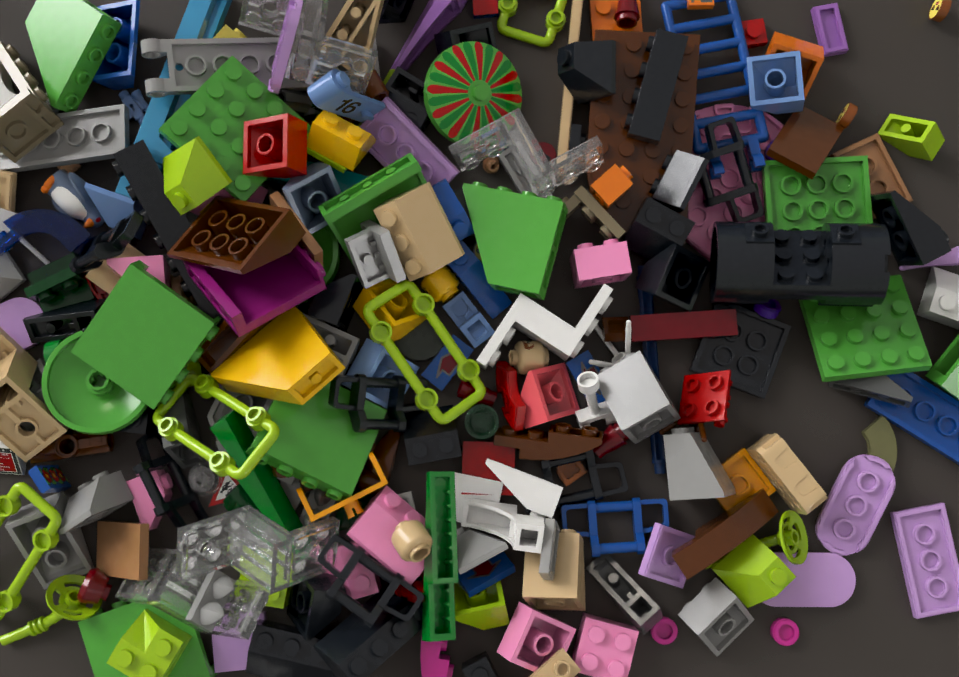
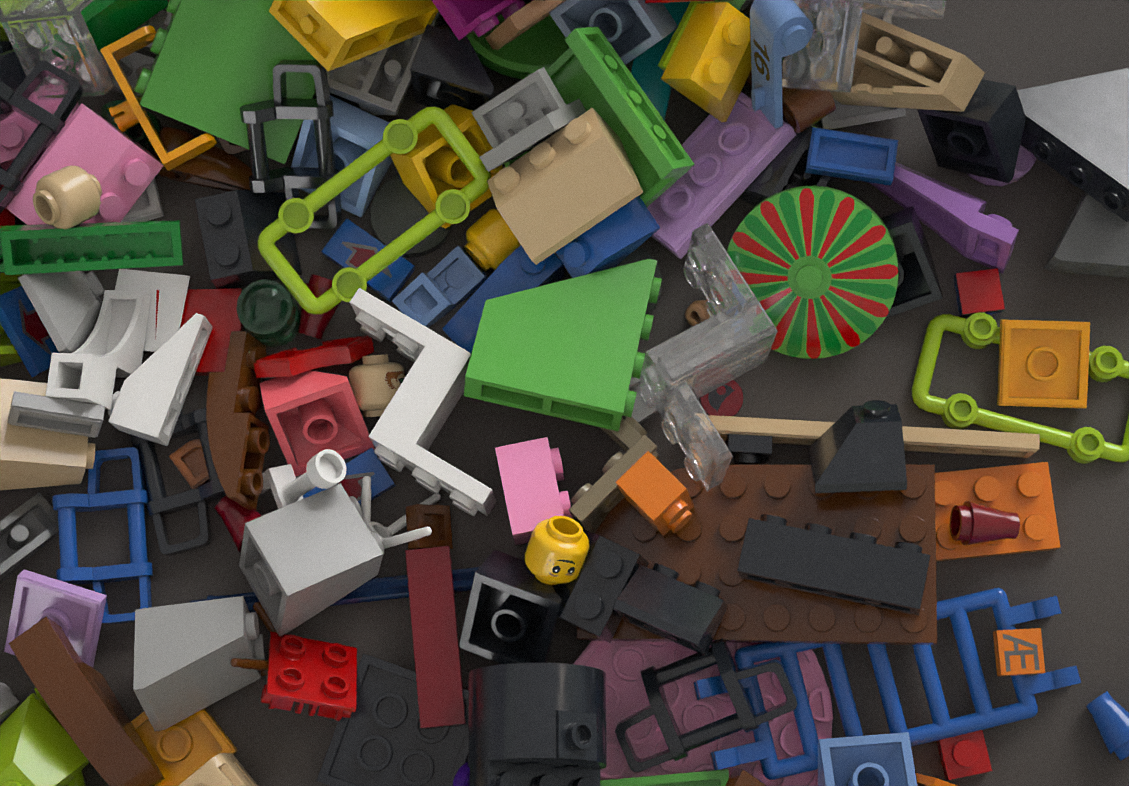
camera: 90 degrees right, 5 degrees down
(405, 63) = (851, 156): none -> blue tile
(643, 245) = (557, 550): none -> yellow head

